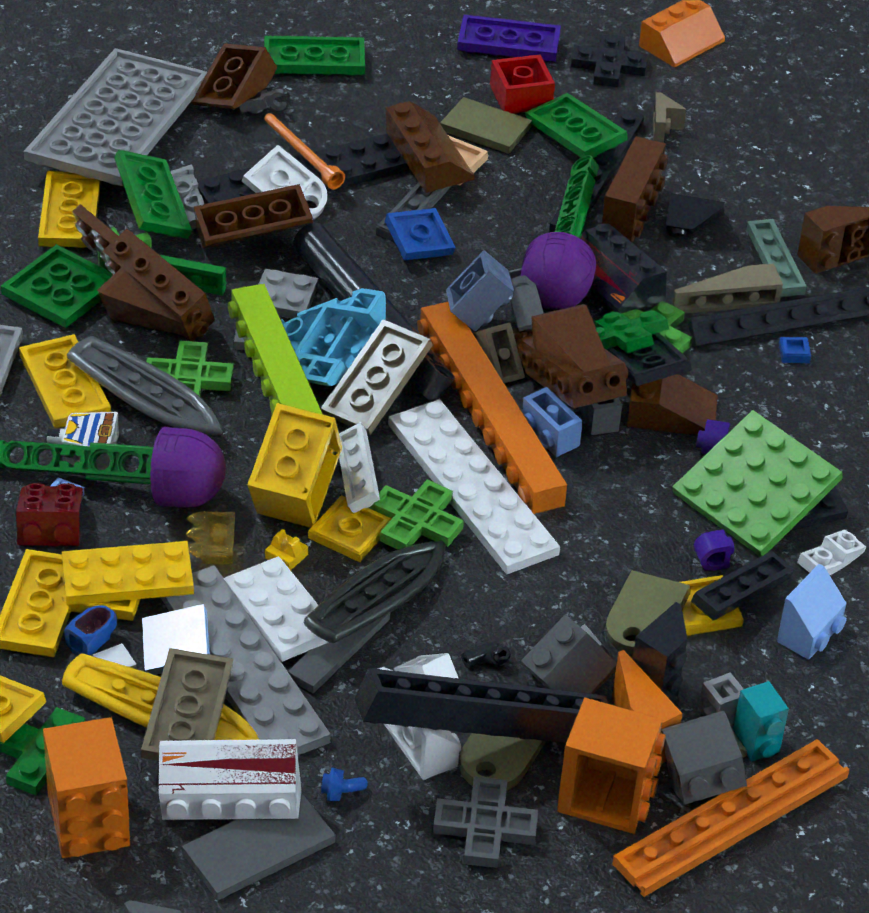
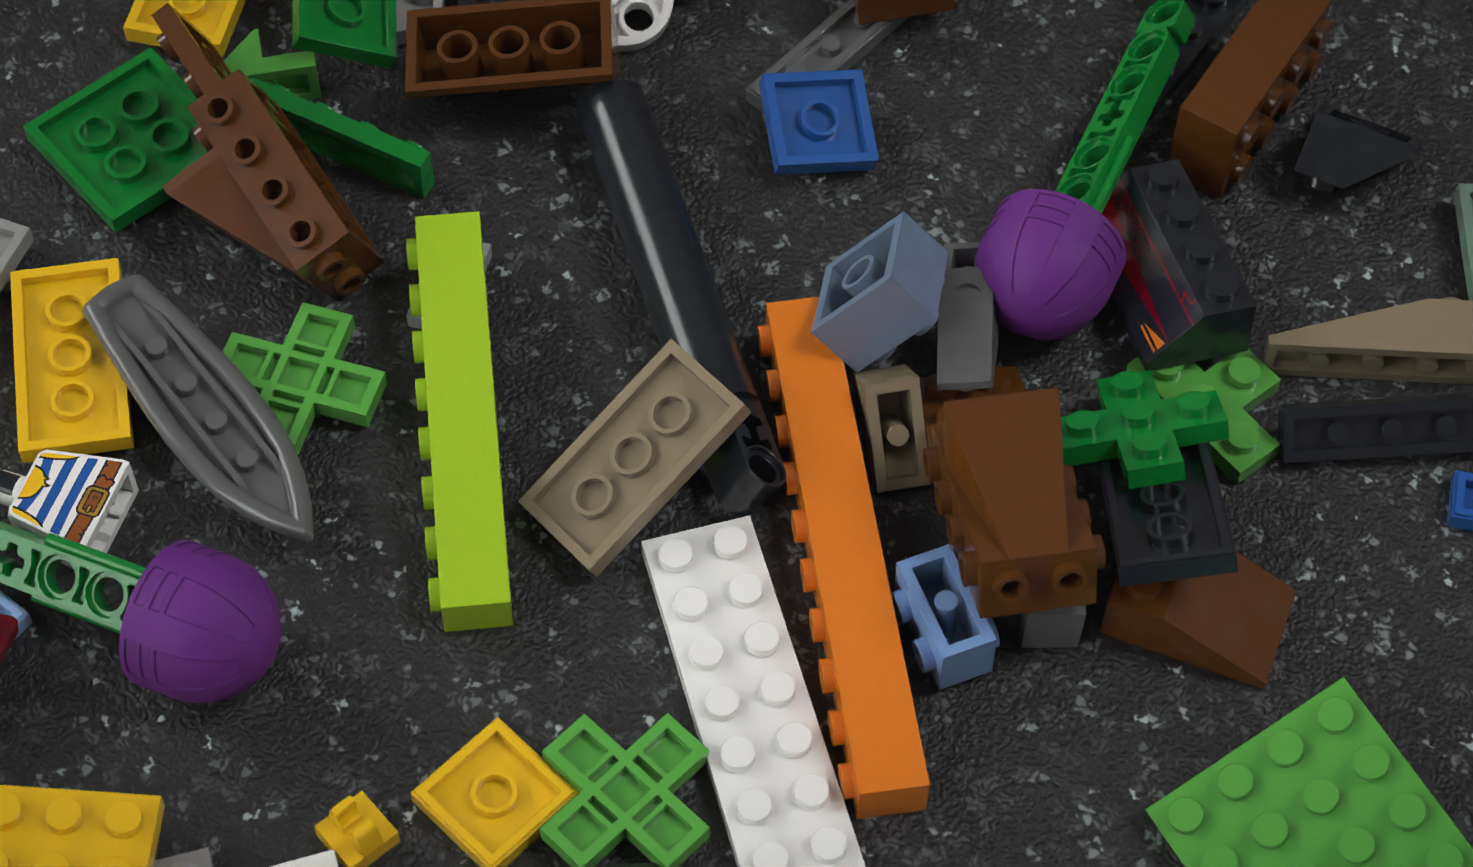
camera: 15 degrees right, 15 degrees up
(213, 536) = (229, 778): clear yellow plate -> none
(289, 291) = (537, 216): light grey plate -> none
(295, 465) = (398, 670): yellow container -> none
(334, 333) = (576, 344): medium azure wedge -> none
(358, 469) = (540, 665): white plate -> none
(712, 434) = (1258, 703): dark purple plate -> none

